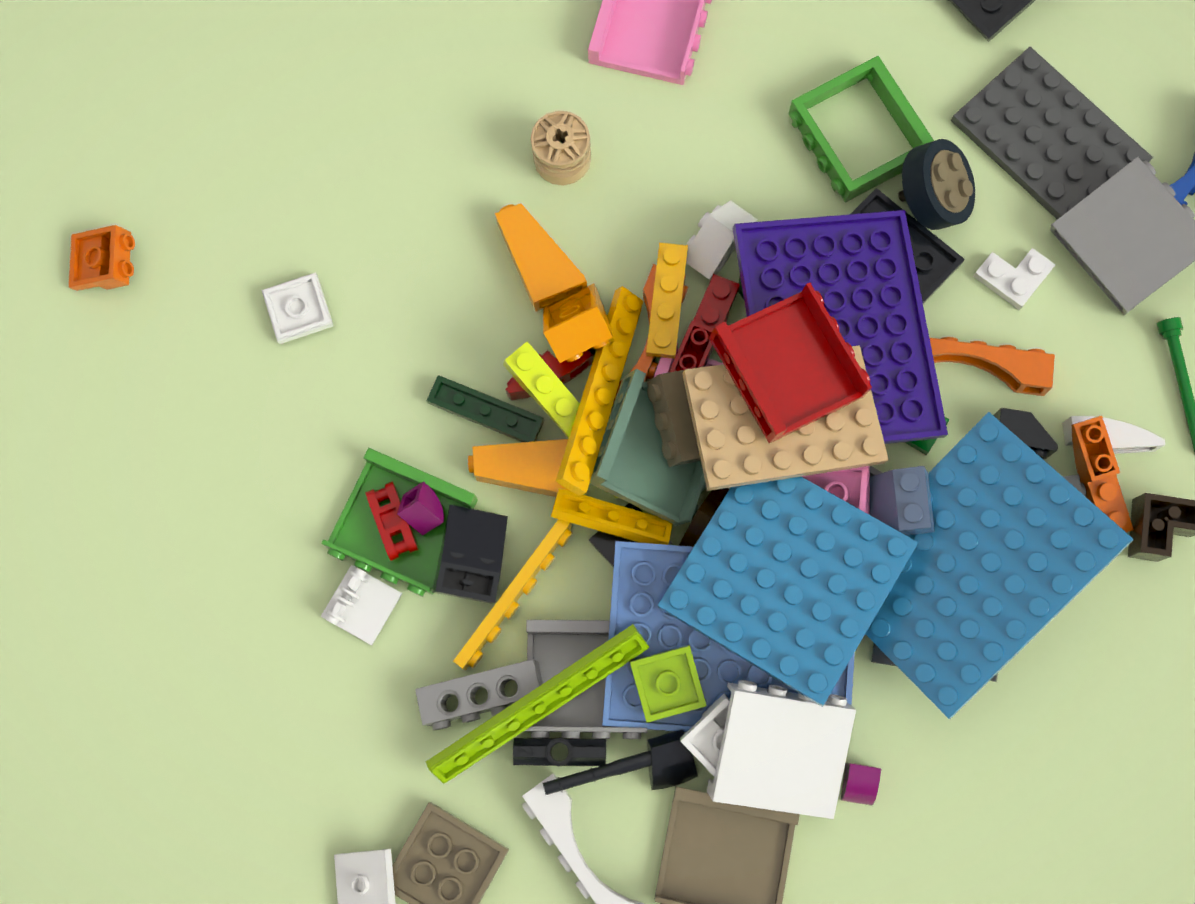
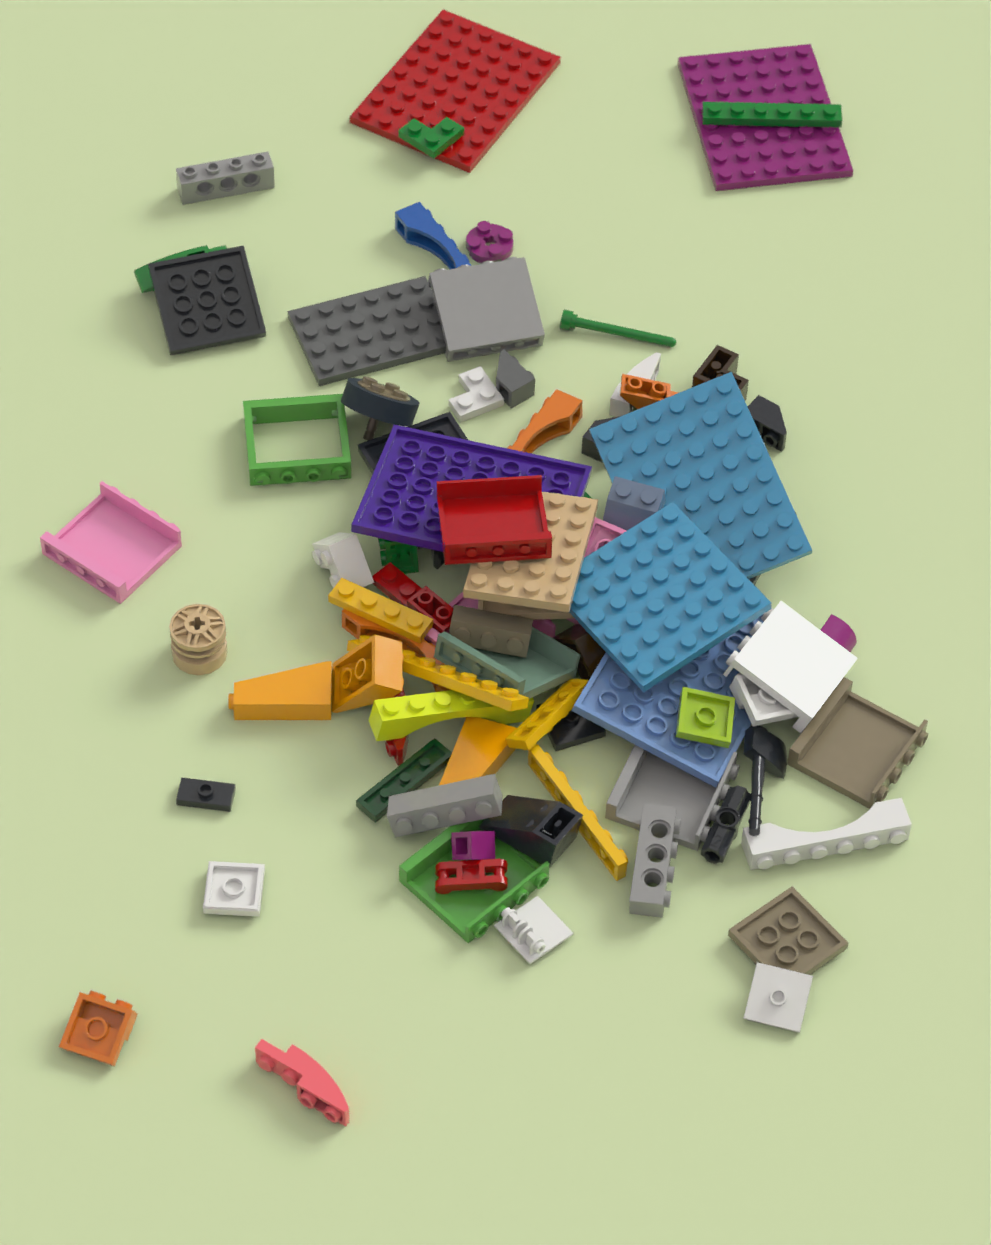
camera: 75 degrees left, 25 degrees down
(108, 474) = (314, 1084): none -> coral slope
(396, 236) = (206, 794): none -> black plate
(451, 463) = (444, 805): none -> light grey brick
(537, 704) = (684, 813): lime tile -> none
(1049, 304) = (513, 380): none -> dark grey slope
(1130, 595) = (769, 422): none -> black slope

